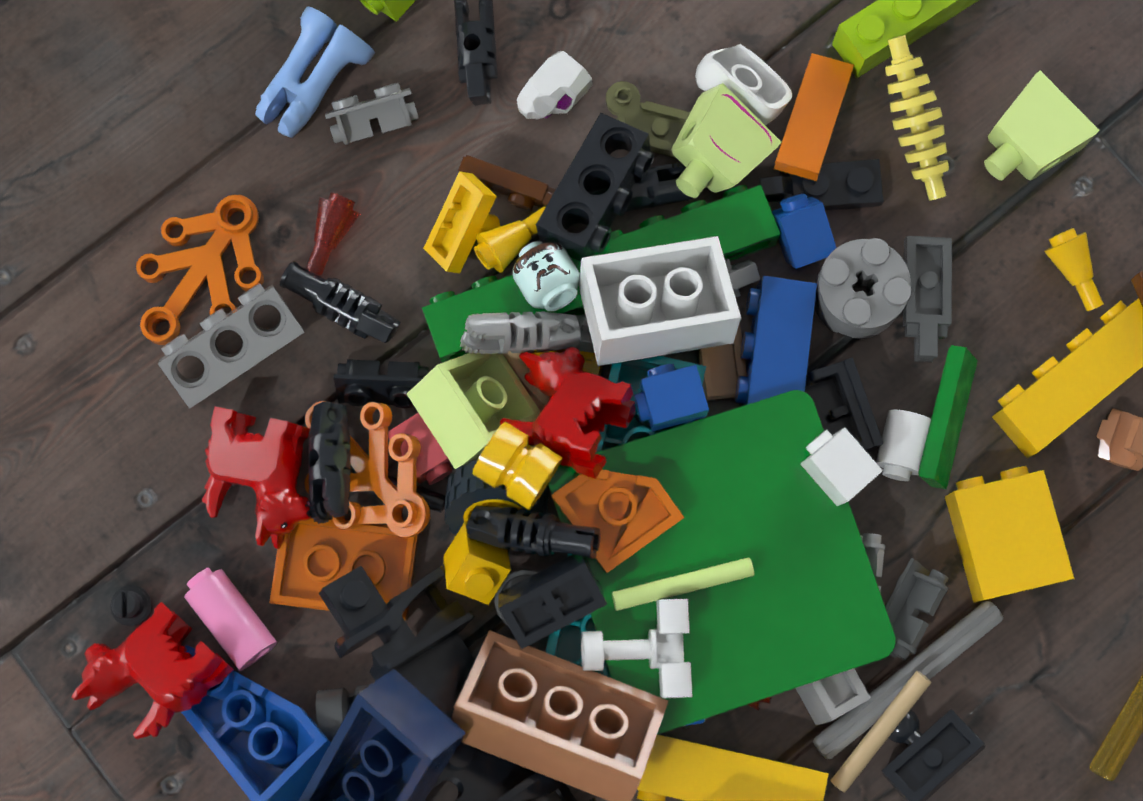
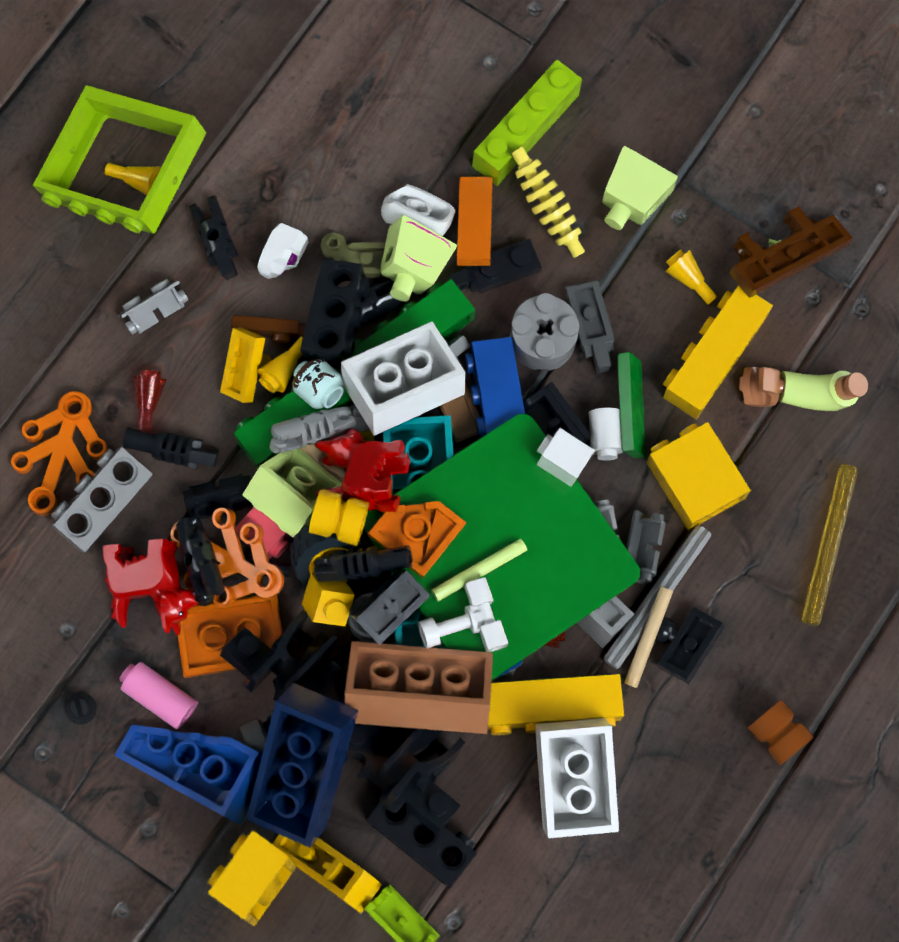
camera: 25 degrees left, 5 degrees down
(159, 664) = (114, 740): red animal -> none
(305, 97) = (99, 308): light blue piece -> none
(671, 397) = (432, 442): blue brick -> none
(803, 230) = (491, 303): blue brick -> none

